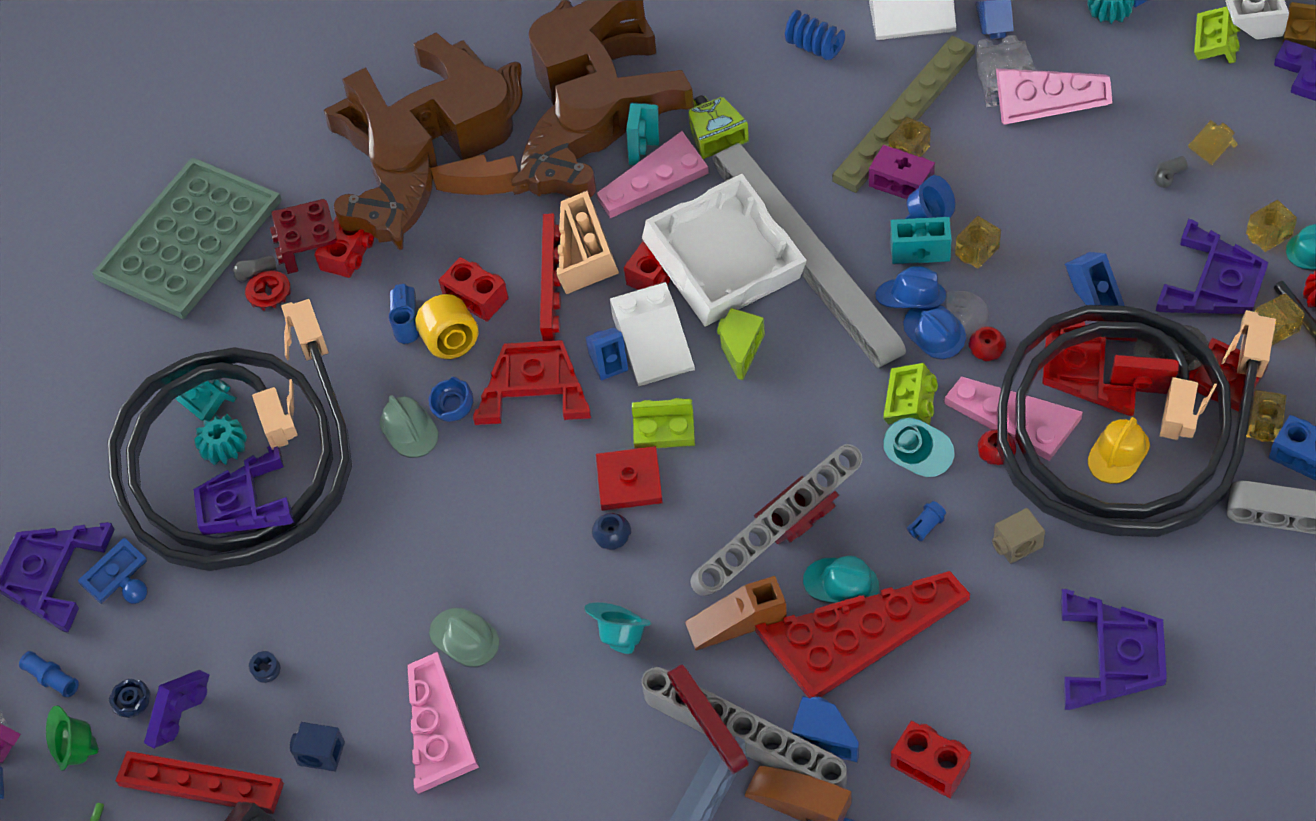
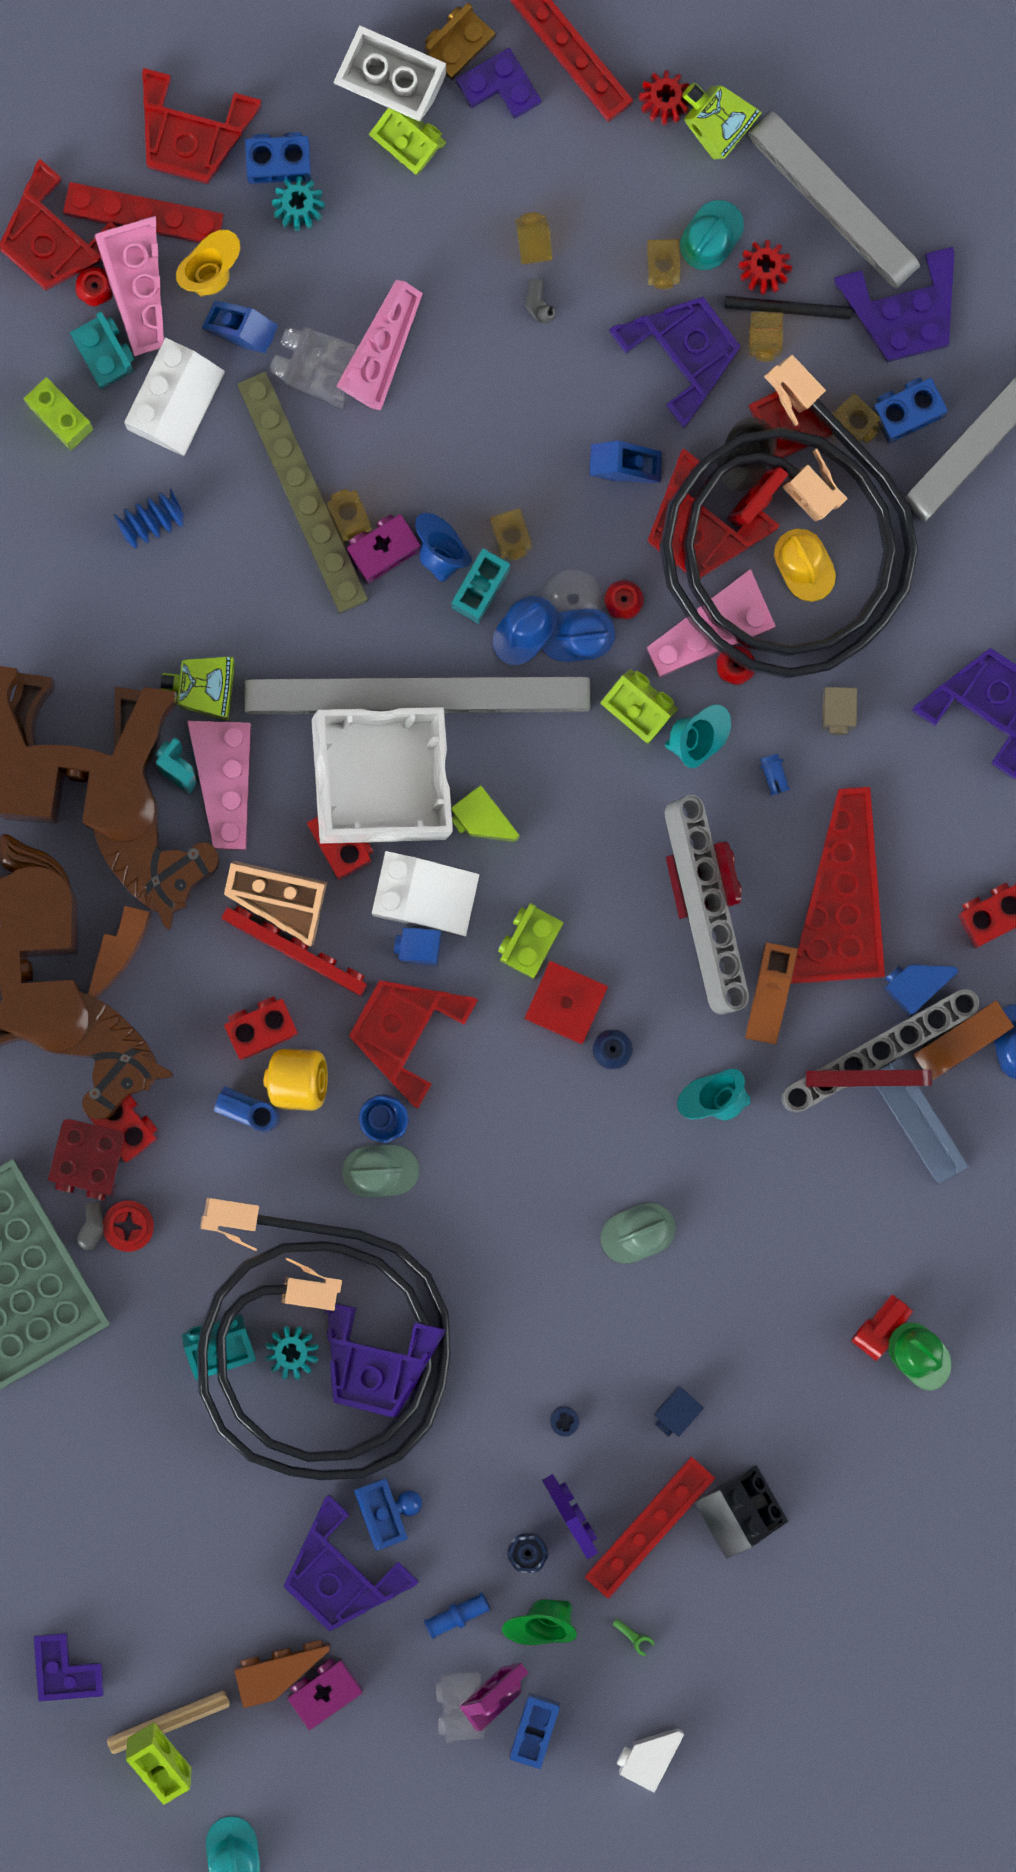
camera: 70 degrees left, 30 degrees up
(438, 730) = (721, 1301): bright pink wing -> none
(840, 579) = (783, 882): teal piece -> none

